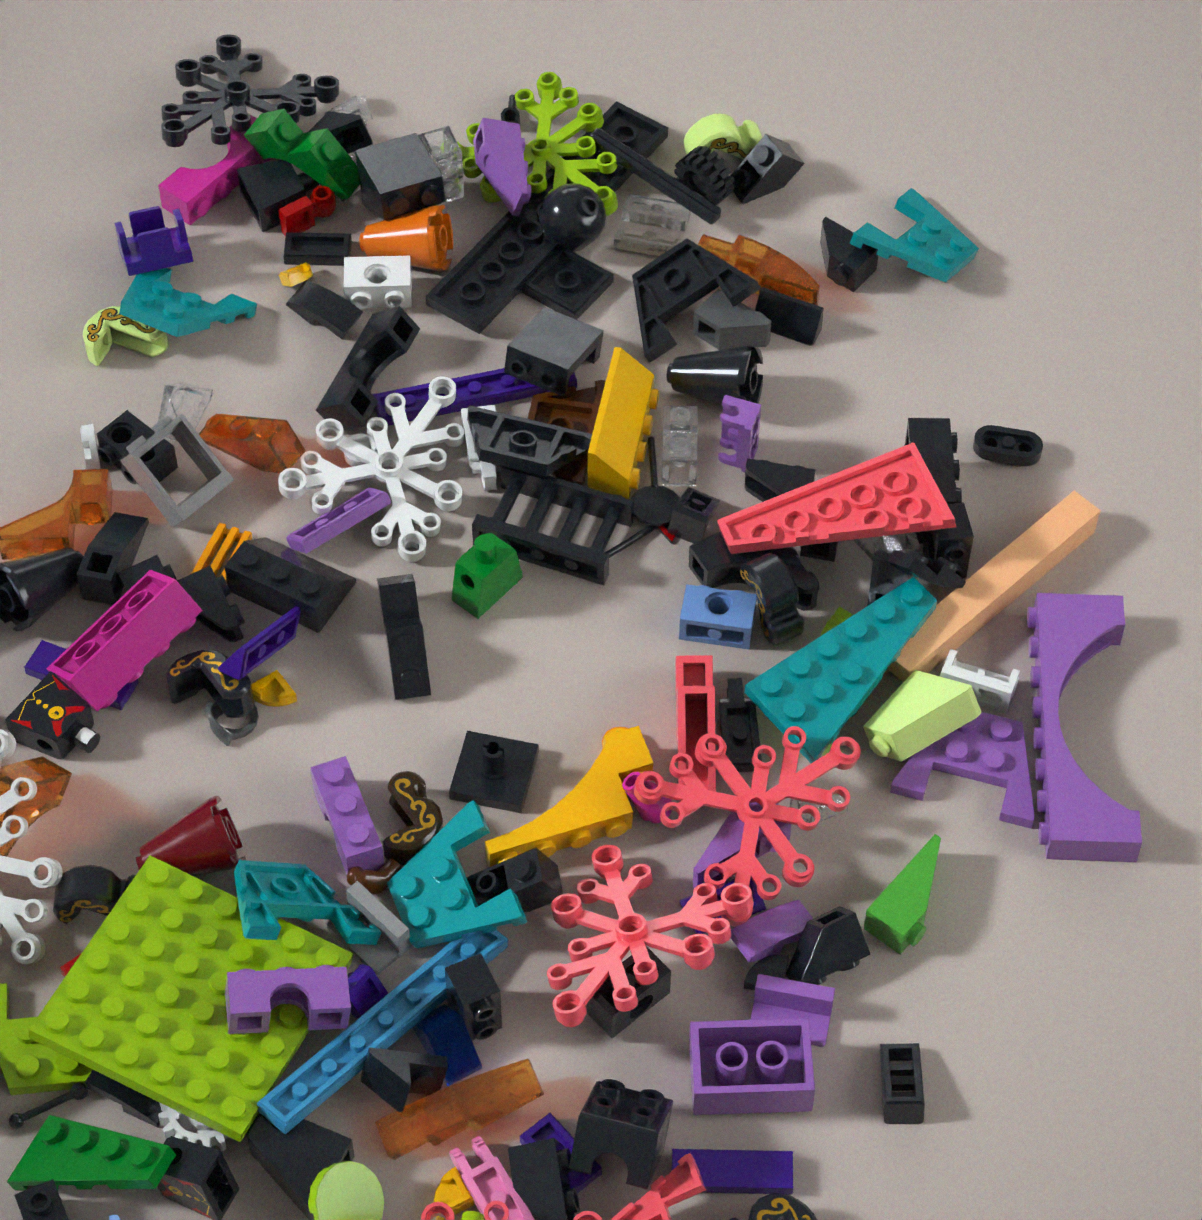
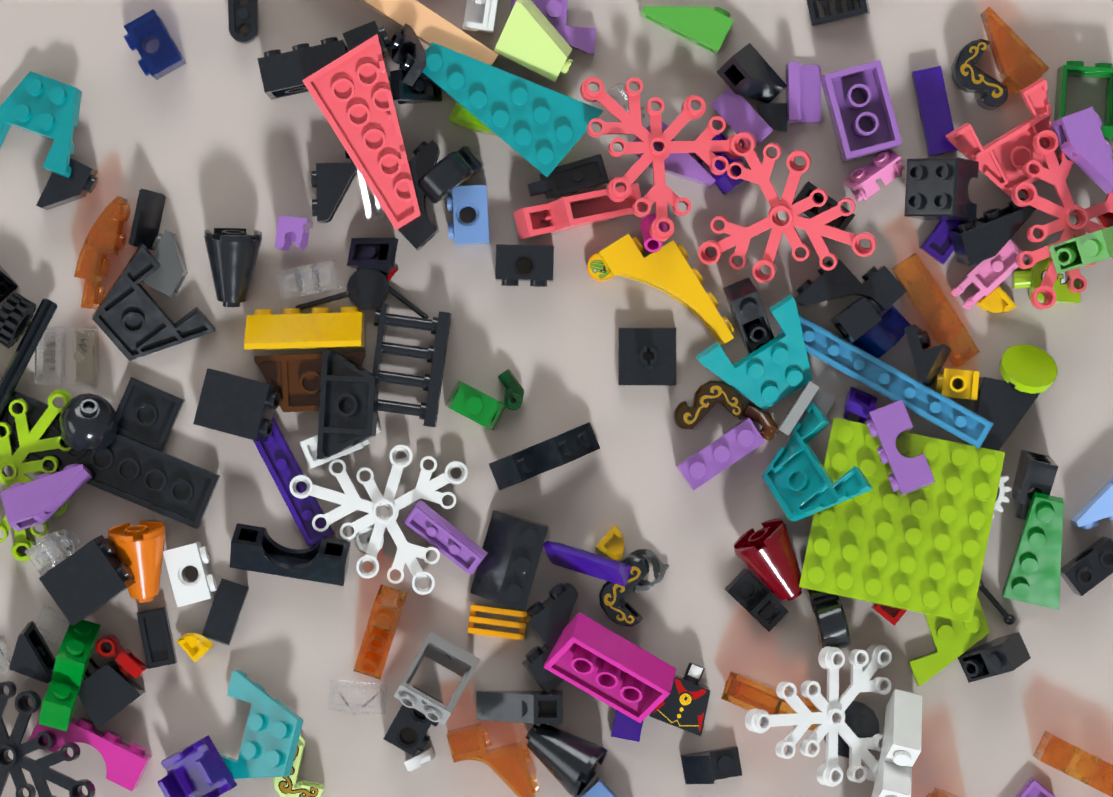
camera: 100 degrees left, 35 degrees up
(138, 829) = (756, 600): none -> black slope
(356, 1124) = (969, 381): none -> yellow brick
(491, 623) = (513, 390): none -> dark green arm
(528, 1005) = (840, 282): none -> black arch
(643, 678) = (508, 256): none -> black brick
(655, 1061) = (863, 180): none -> bright pink hinge
(987, 357) = (167, 56): none -> clear blue brick

